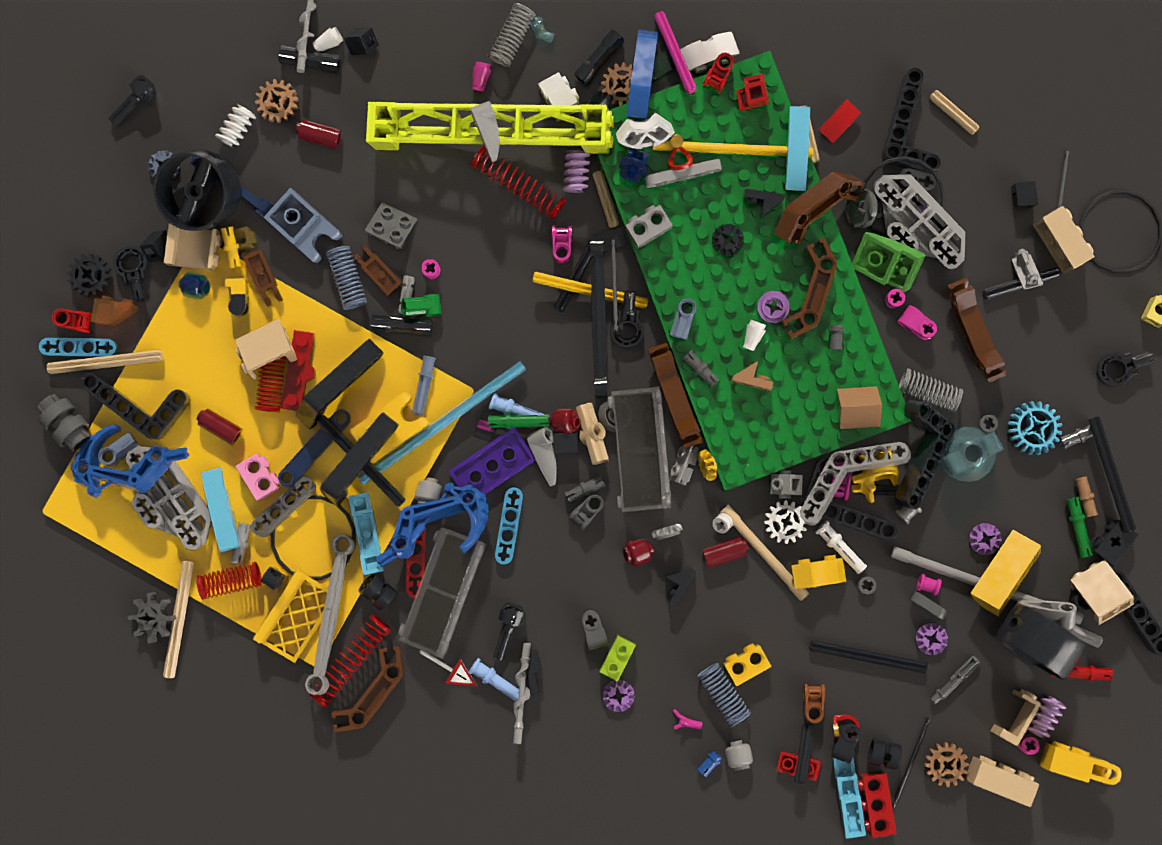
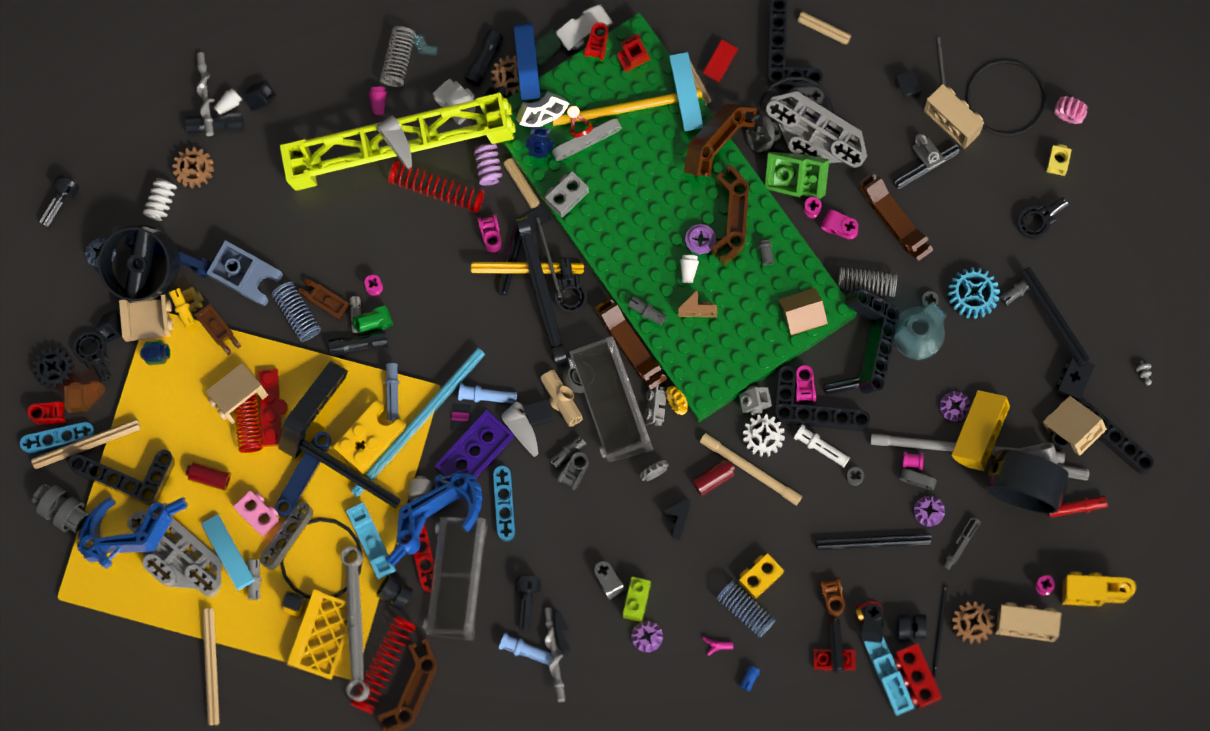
camera: 10 degrees left, 10 degrees down
(119, 449) = (118, 519): sand blue piece -> none
(151, 625) = (189, 676): dark grey gear -> none
(239, 296) = (199, 350): leg -> none
(255, 576) = (278, 611): red piece -> none
(318, 133) = (239, 188): dark red brick -> none
(337, 483) = (332, 497): black beam -> none
(390, 225) = (326, 255): dark grey hinge -> none
(458, 675) = (490, 655): piece -> none
(518, 421) = (490, 402): green pin -> none
(565, 421) = (533, 392): dark red head -> none
(638, 552) = (631, 497): dark red head -> none
(675, 52) = (553, 35): dark pink axle -> none
(683, 321) = (619, 271): sand blue piece -> none
(718, 240) = (647, 196): black gear -> none
(726, 519) = (700, 454): white bush -> none
(739, 755) = (774, 662): light grey head -> none
(768, 199) = (671, 143): black slope -> none
(818, 573) = (807, 473): yellow brick -> none
(849, 466) = (809, 365): light grey beam -> none
(867, 477) = (835, 364): yellow piece -> none
(906, 514) = (875, 399): light grey bush -> none
(1023, 719) = (1022, 579): tan panel -> none
(1046, 716) = (1053, 556): lavender piece -> none
(1078, 523) = (1039, 373): green pin -> none
(1086, 496) = (1038, 344): medium nougat pin -> none

